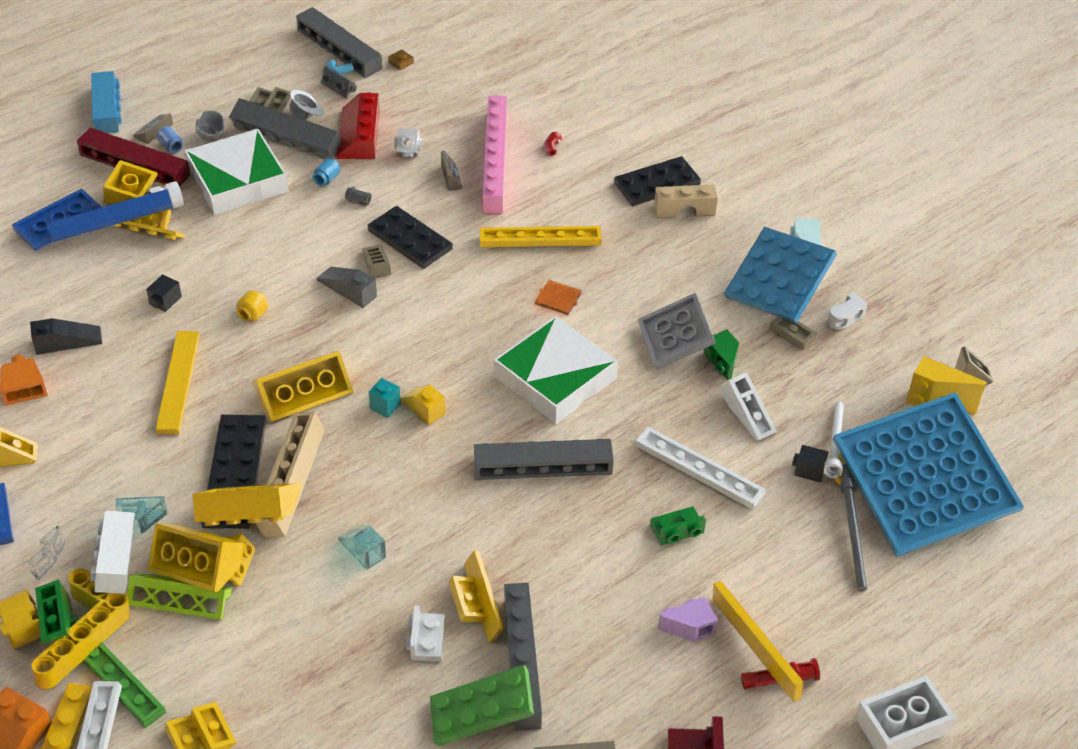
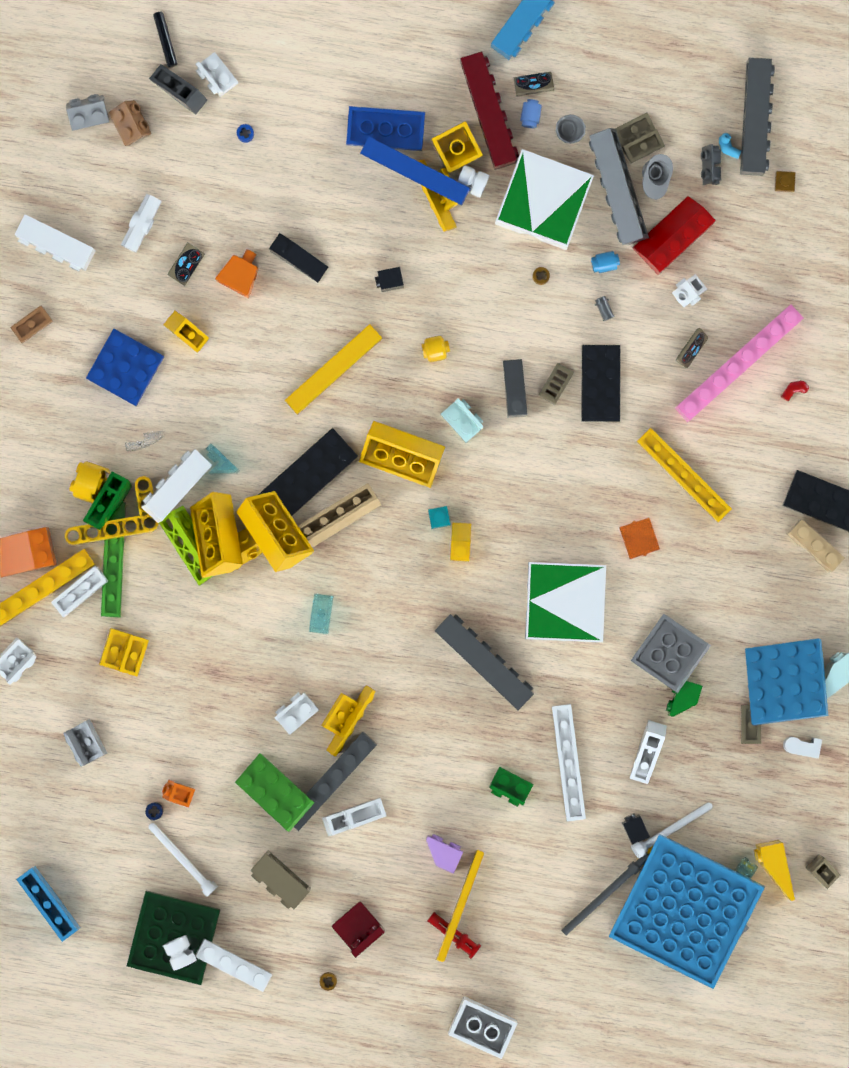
camera: 50 degrees right, 40 degrees up
(286, 213) = (542, 281): none -> pearl gold bush
(328, 329) = (462, 419): none -> light aqua bracket
(577, 667) = (354, 817): none -> white slope

